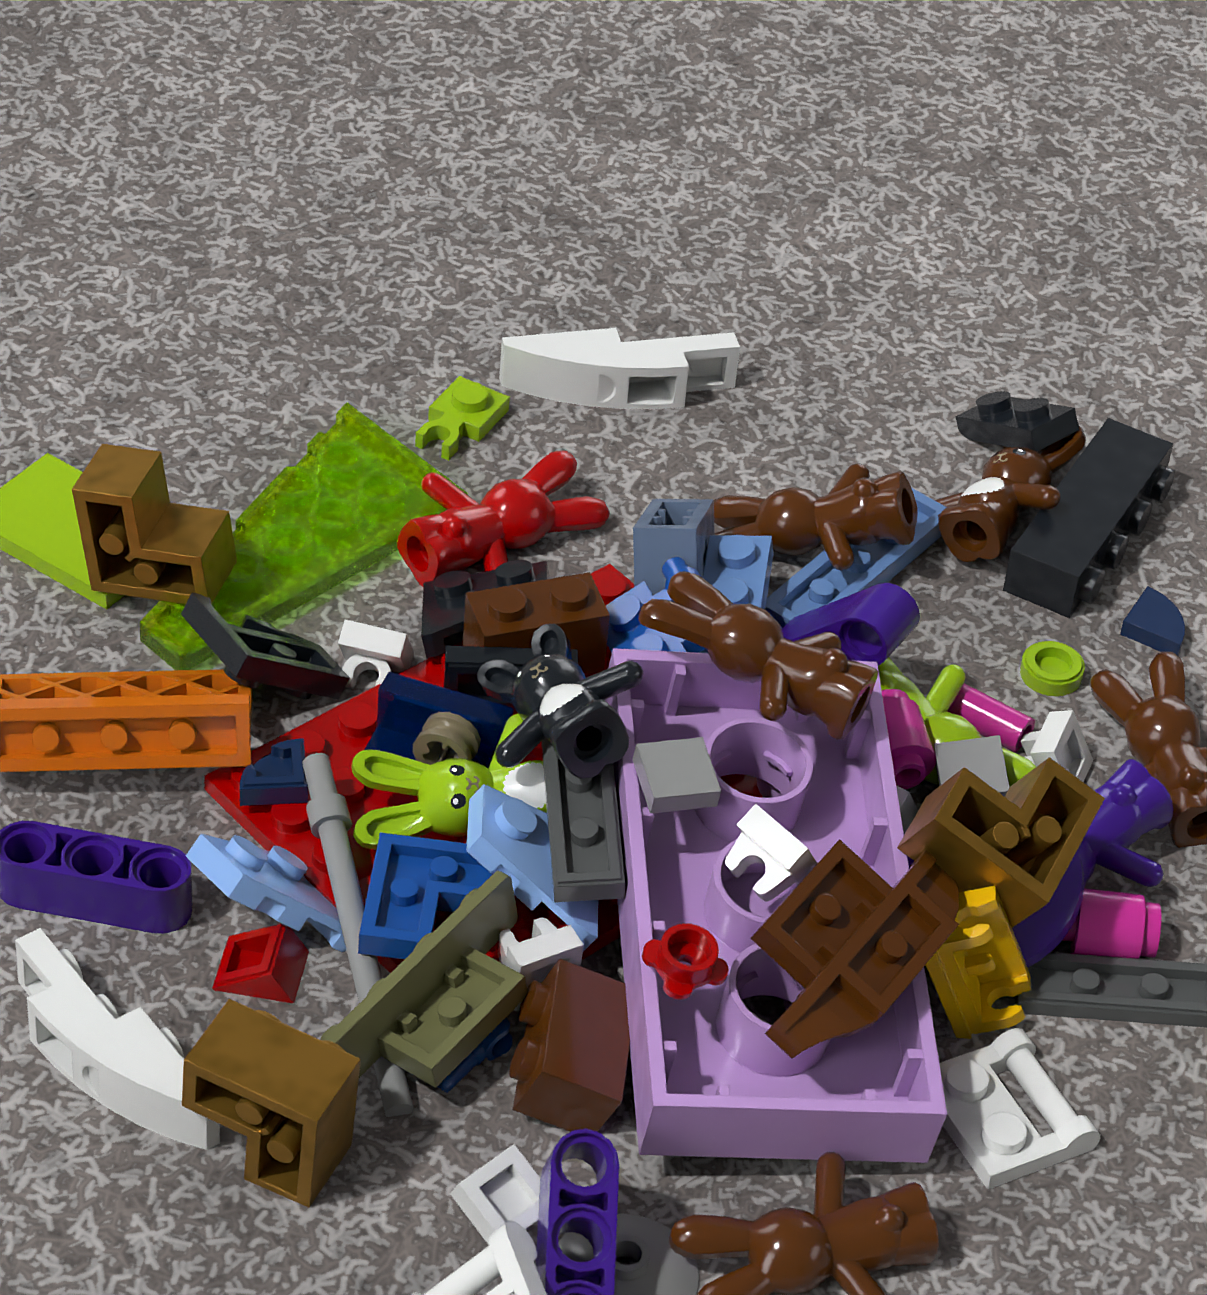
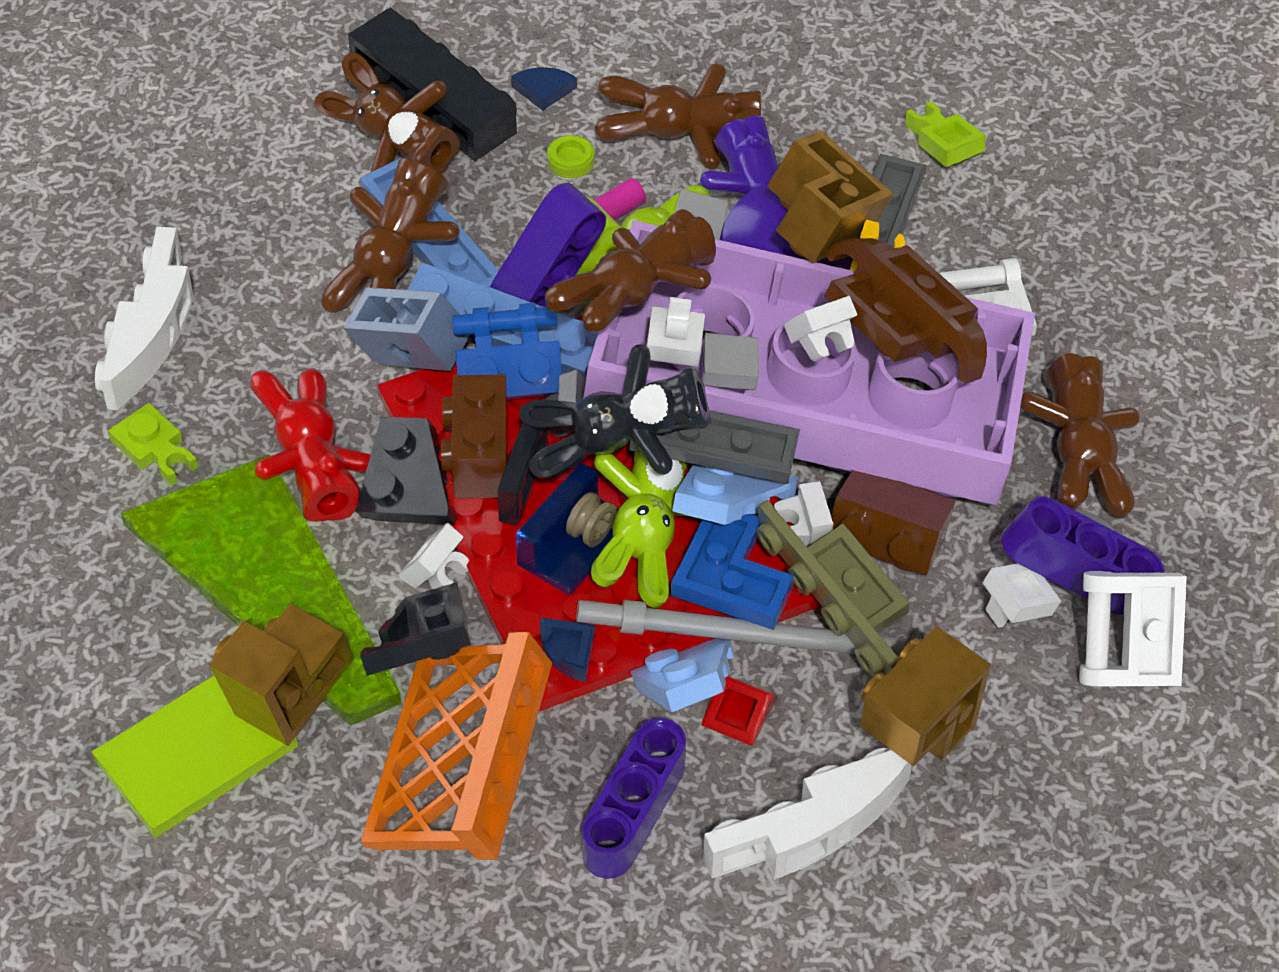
camera: 70 degrees left, 10 degrees up
(687, 944) = (903, 404): red plate -> none
(693, 711) = (676, 333): none -> white tile
(1017, 421) = (319, 91): black plate -> none
(1062, 742) = (666, 173): white tile -> none

